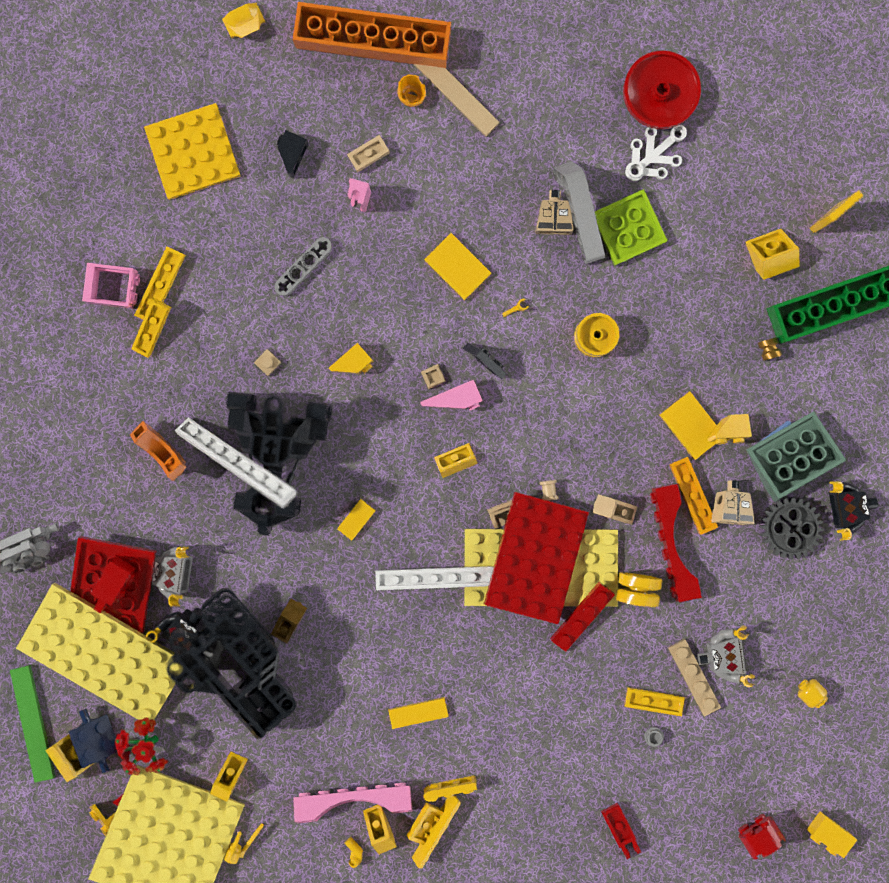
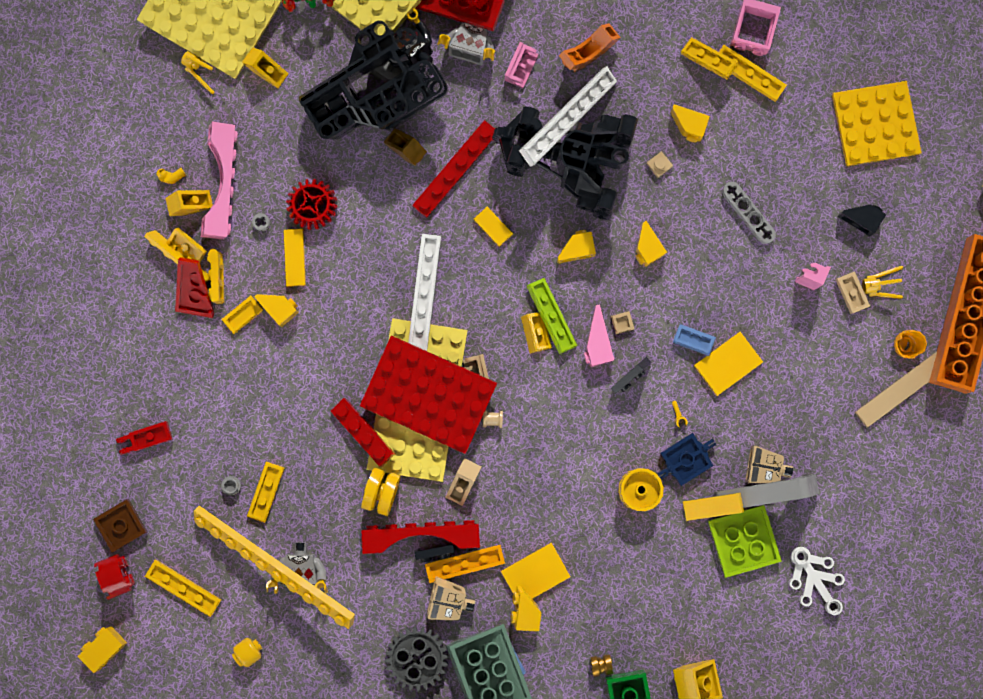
camera: 95 degrees right, 5 degrees down
(186, 516) = (521, 65): none -> bright pink hinge
(220, 338) = (690, 123): none -> yellow slope
(304, 567) = (454, 169): none -> red plate
(358, 135) = (872, 284): none -> yellow plant
(364, 431) = (578, 247): none -> yellow slope
(367, 712) = (317, 200): none -> red gear
(393, 751) = (260, 216): none -> light grey bush
(437, 447) = (551, 316): none -> lime tile
(439, 303) = (694, 340): none -> medium blue plate
(468, 811) = (191, 289): none -> red wing
(472, 719) = (278, 307): none -> yellow slope
(483, 755) = (242, 314): none -> yellow tile
(558, 294) = (686, 459): none -> dark blue plate
(601, 262) = (713, 506): none -> yellow tile
(662, 89) = (880, 595): red dish -> none
(691, 534) = (427, 554): none -> black plate
(694, 677) = (287, 533): tan plate -> none
(710, 839) = (120, 525): none -> reddish brown plate
(732, 678) = (276, 569): none -> yellow plate
(759, 766) = (183, 588): none -> yellow tile

